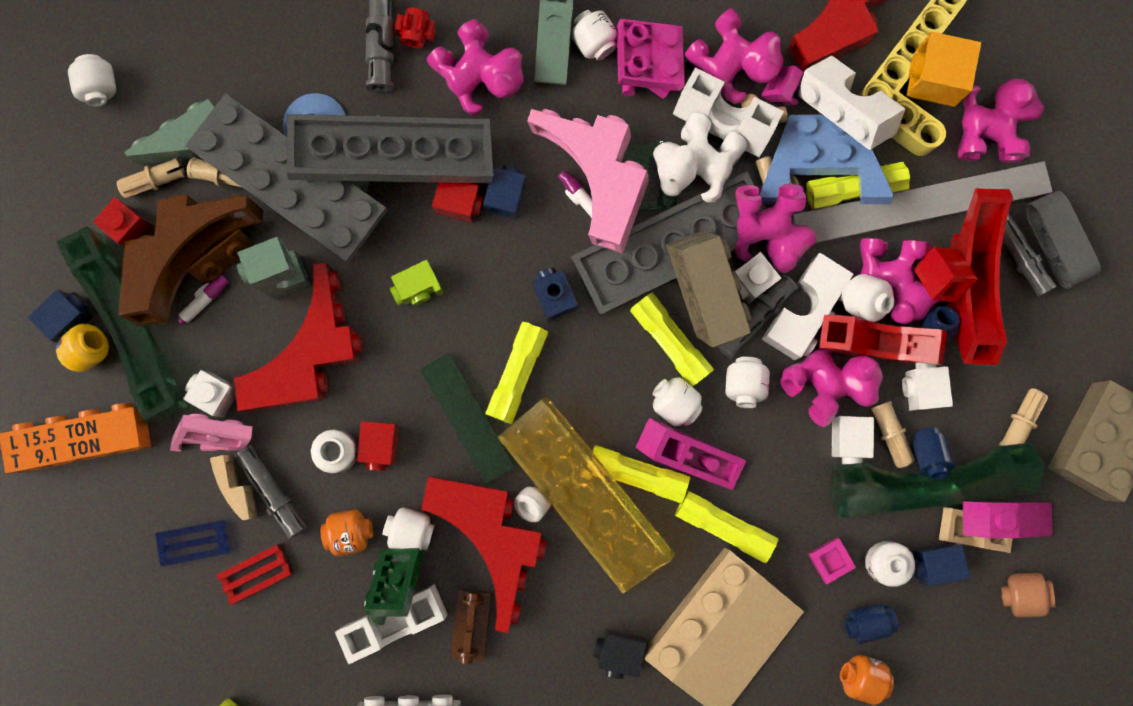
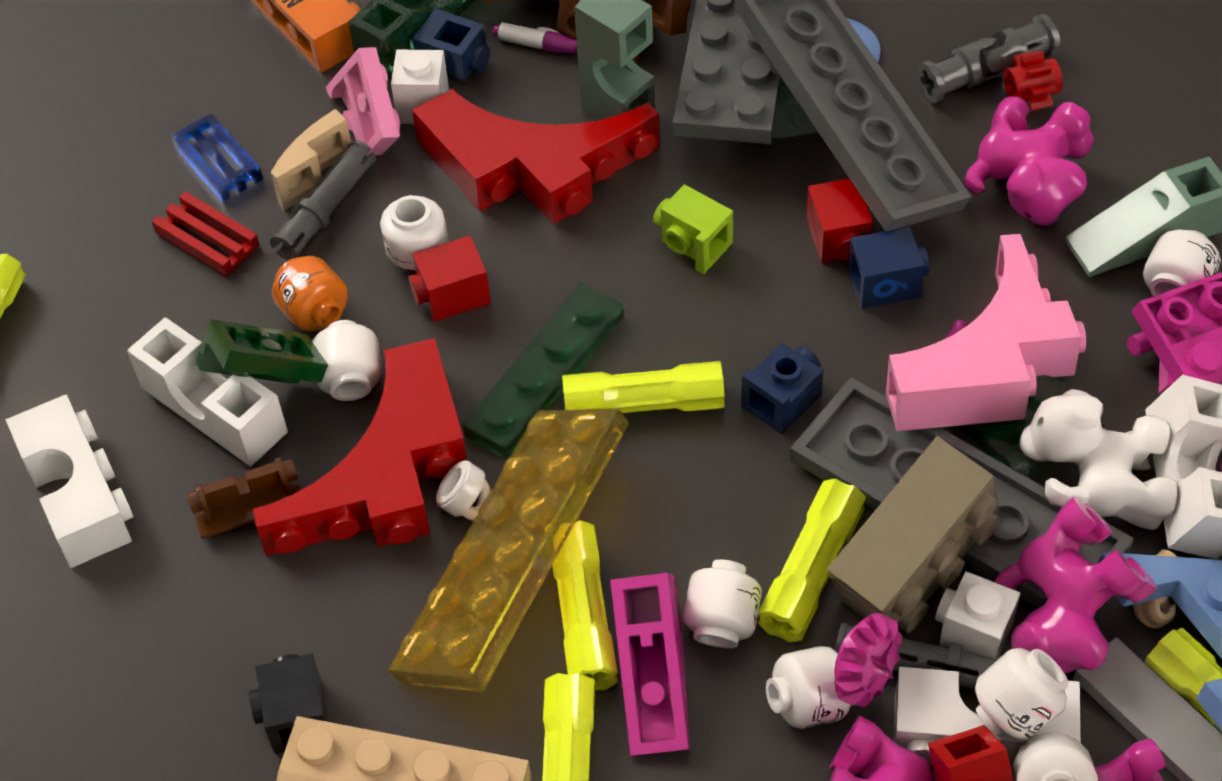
camera: 70 degrees right, 30 degrees down
(175, 358) = (459, 38): none -> dark blue brick
(764, 352) = (867, 659): none -> dark pink gear
(826, 289) = (1021, 693): none -> white head

